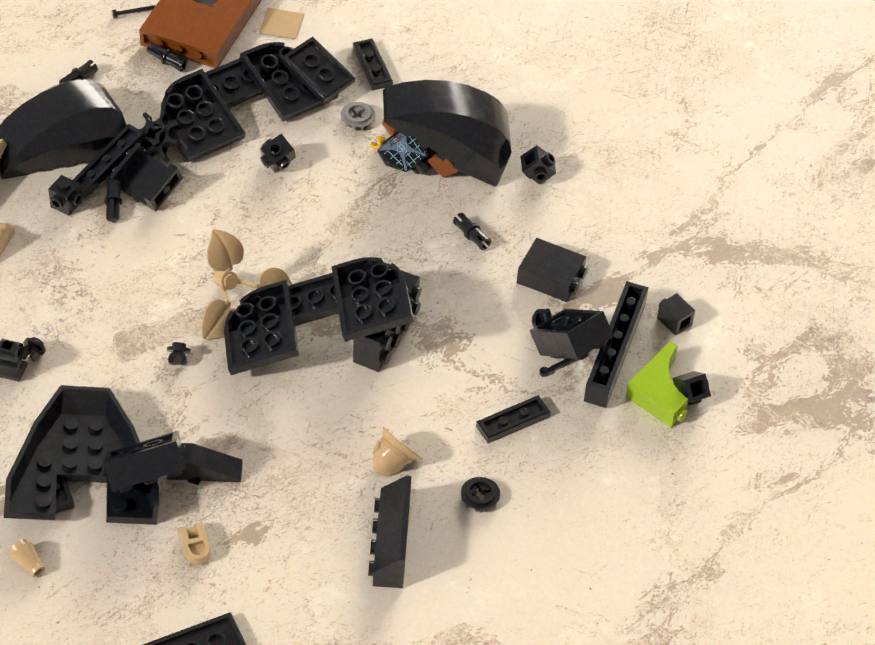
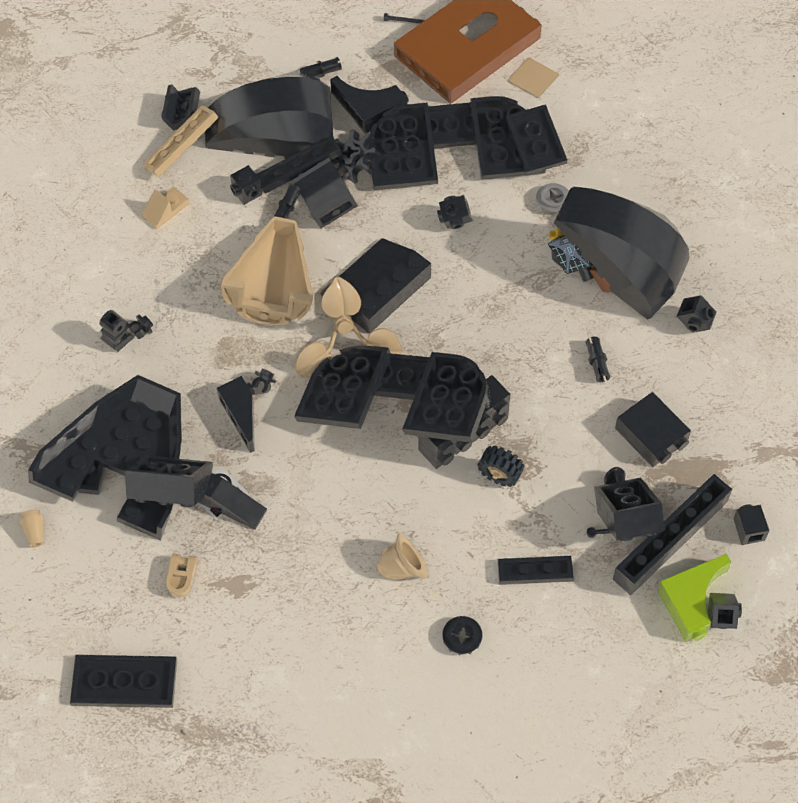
camera: 30 degrees right, 10 degrees up
(140, 263) = (271, 277): none -> tan cone
(143, 92) = (366, 105): none -> black arch
(167, 56) = (409, 77): black axle -> none
(167, 382) = (239, 405): none -> black slope
(250, 220) = (385, 280): none -> black slope
(372, 64) = (596, 149): black tile -> none
(391, 534) = (355, 644): black slope -> none
(438, 343) = (500, 466): none -> black wheel

